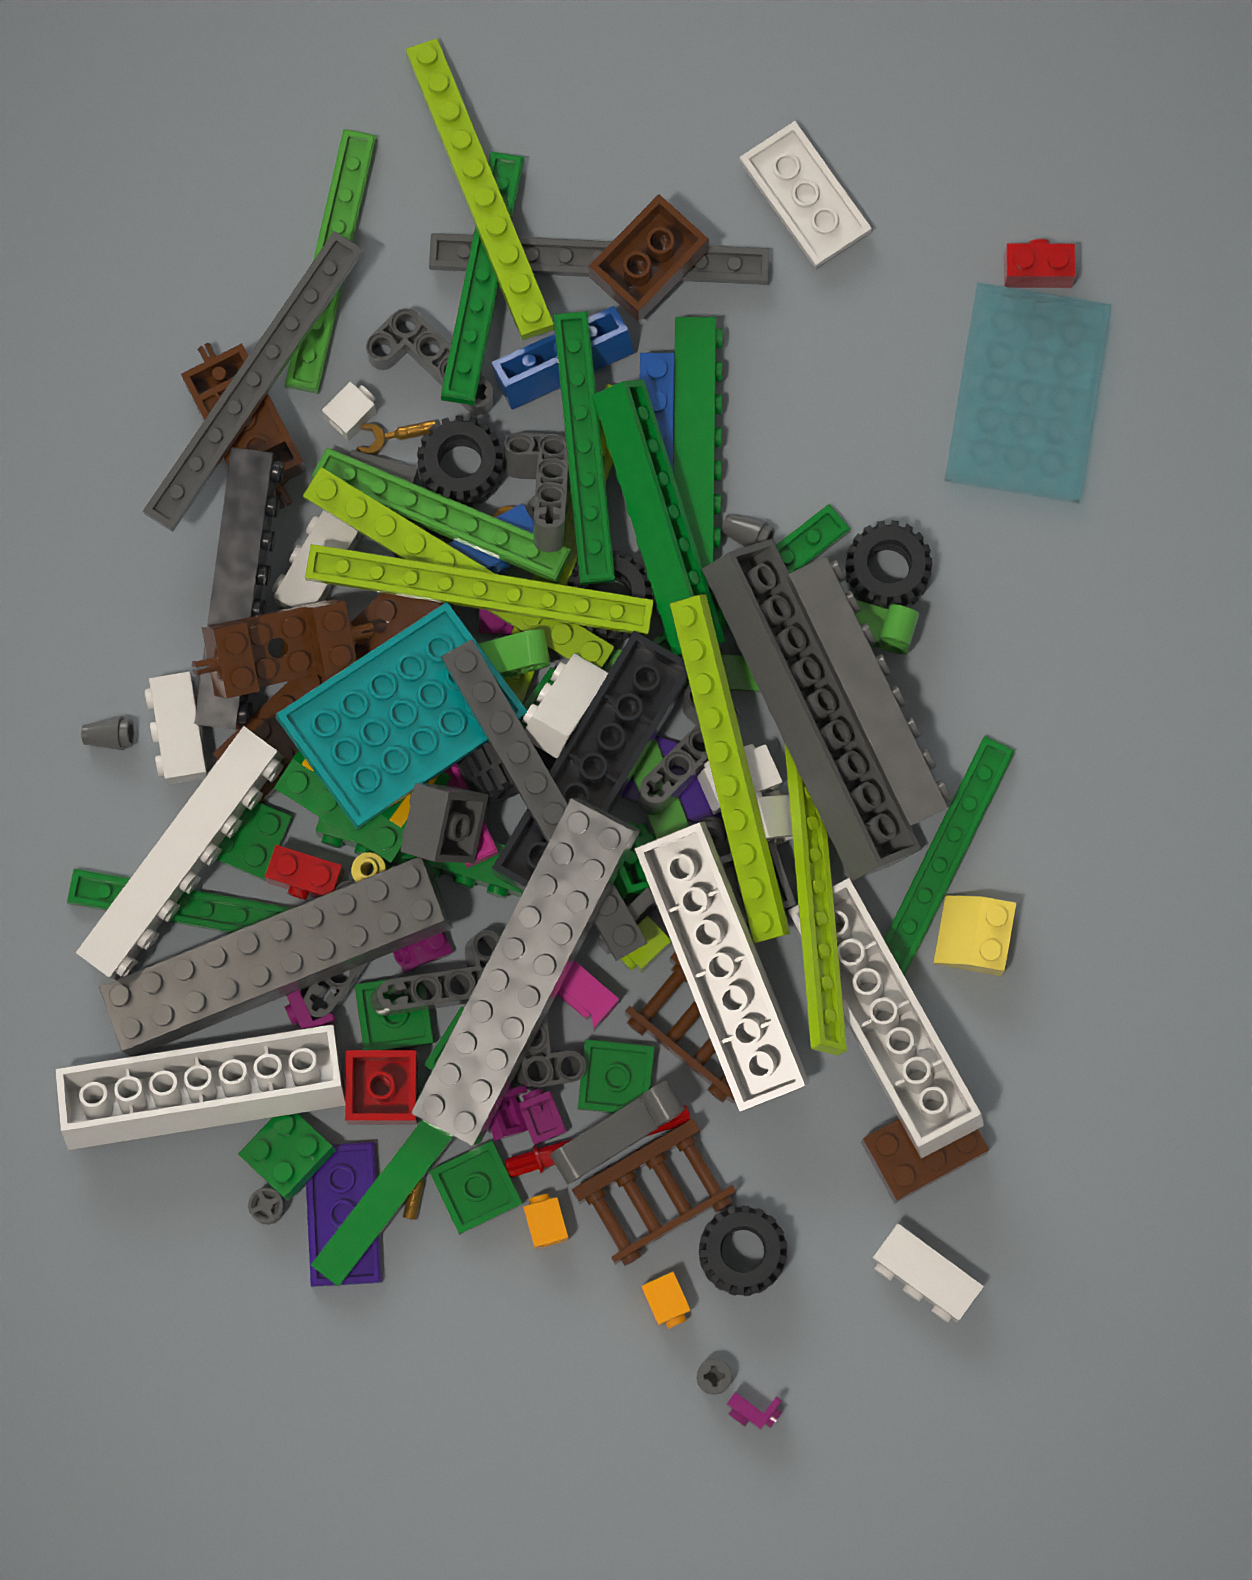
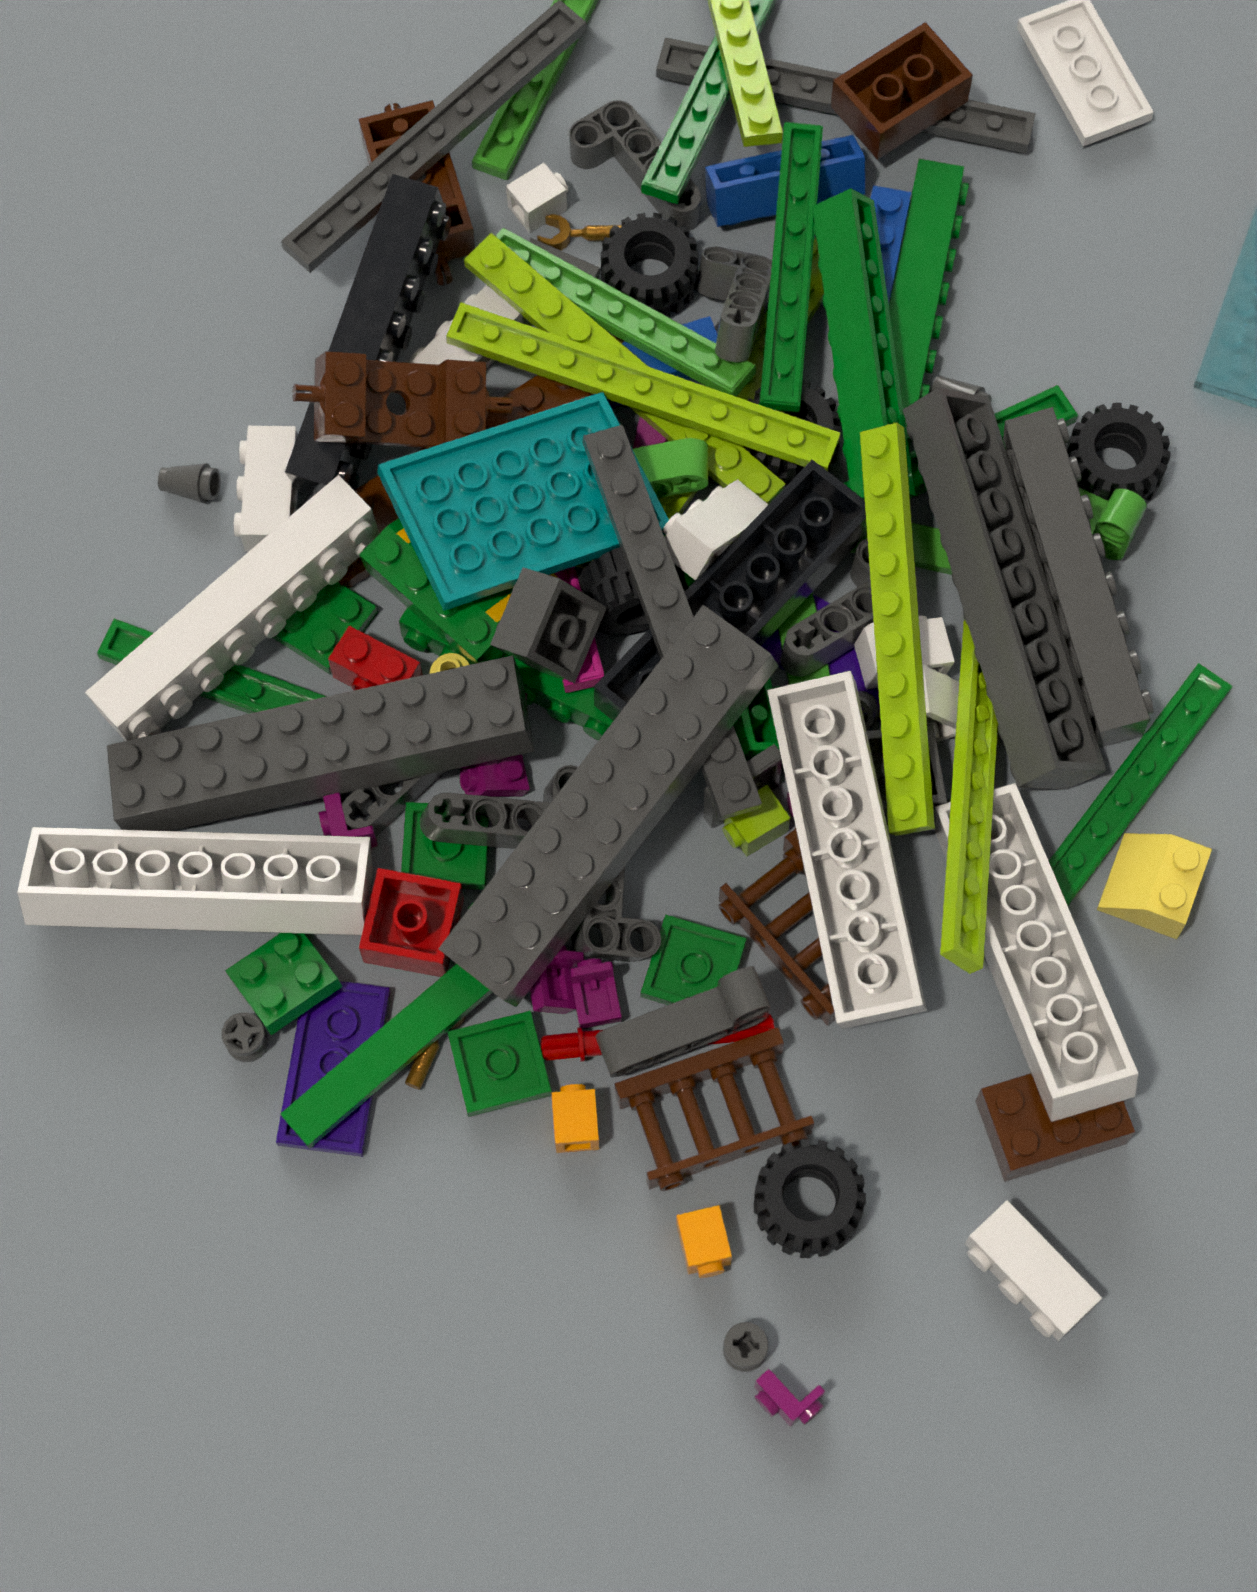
camera: 10 degrees right, 10 degrees down
(587, 995) = (676, 863): dark pink window -> none

